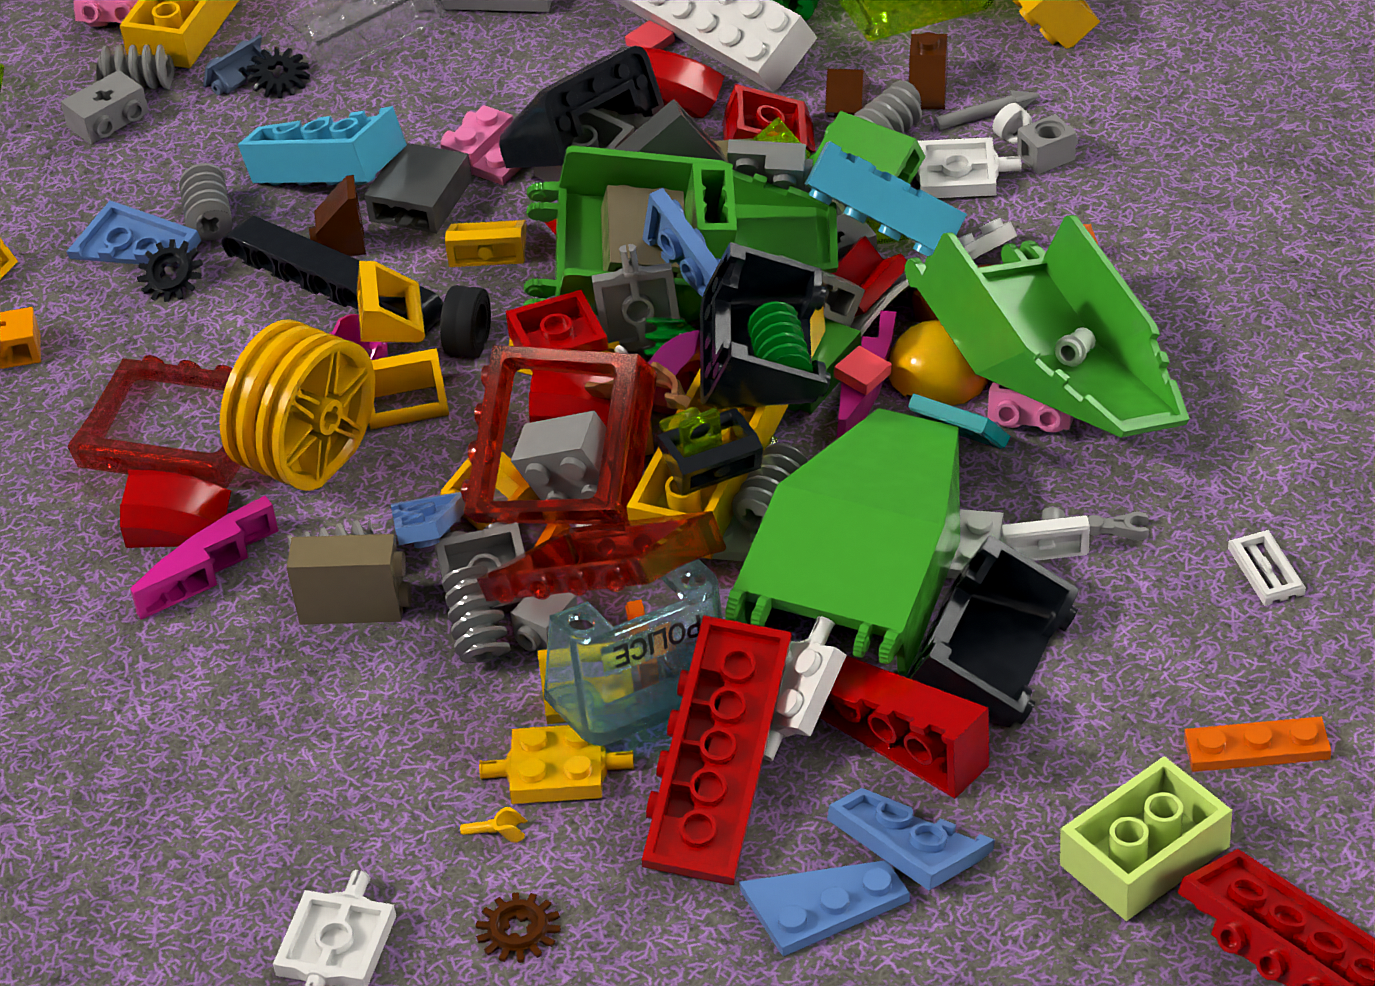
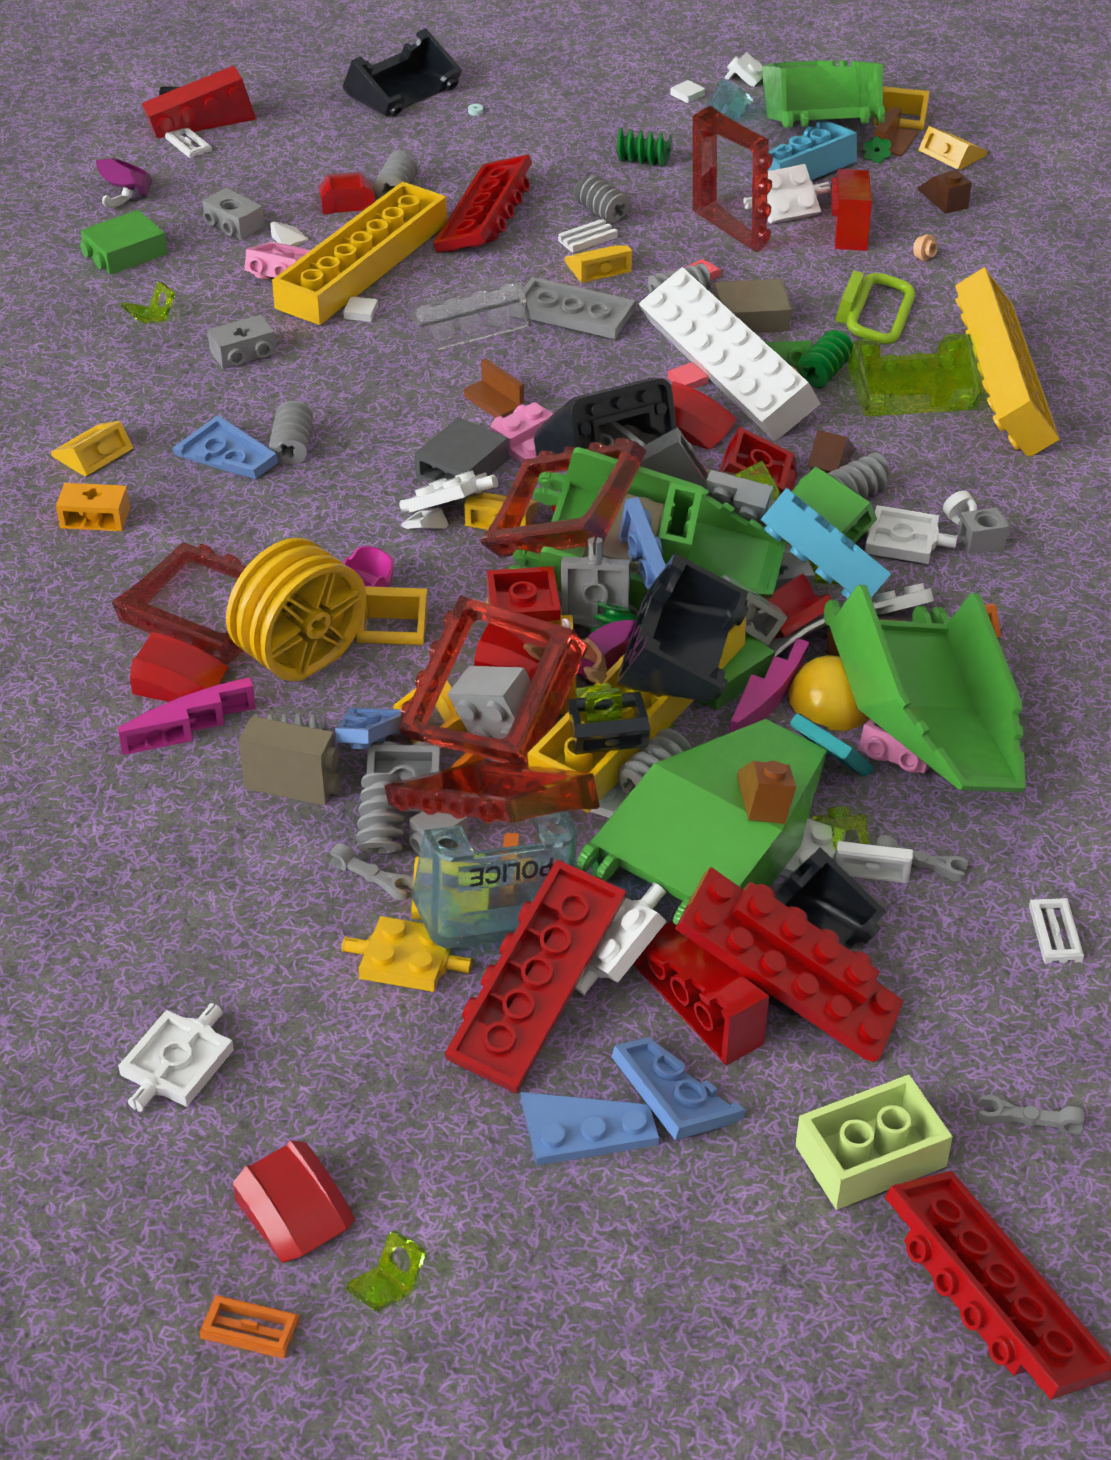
camera: 10 degrees right, 0 degrees up
(142, 68) = (278, 315): light grey piece -> none
(156, 271) = (235, 475): black gear -> none
(225, 71) = (344, 334): sand blue hinge -> none
(229, 36) = (360, 309): none -> white tile
(286, 81) = (389, 351): black gear -> none
(313, 266) = (372, 513): black beam -> none
(323, 149) = (395, 410): medium azure wedge -> none
(340, 220) = (388, 472): reddish brown slope -> none
(378, 323) = (388, 560): yellow tile -> none
(409, 265) = (427, 519): none -> white slope
(414, 233) = (449, 490): none -> white plate
(432, 102) = (496, 392): none -> dark orange panel
(446, 675) = (345, 859): none -> light grey piece
(465, 321) = (458, 571): black tyre -> none
(503, 822) = (345, 994): yellow hand -> none
(509, 270) = (507, 535): none -> clear red windscreen
(523, 911) = (336, 1071): reddish brown gear -> none
(778, 336) = (694, 640): green piece -> none
(862, 370) = (764, 684): coral tile -> none
(915, 484) = (767, 790): none -> dark orange slope
(929, 68) = (905, 448): reddish brown slope -> none
(985, 109) = (935, 492): light grey piece -> none
(998, 503) = (843, 820): none -> clear neon green bracket
(998, 665) = (793, 961): none -> red plate
(1073, 348) = (945, 705): white pin -> none
(1257, 744) = (1006, 1081): orange plate -> none
(1343, 765) = (1067, 1120): none -> light grey piece

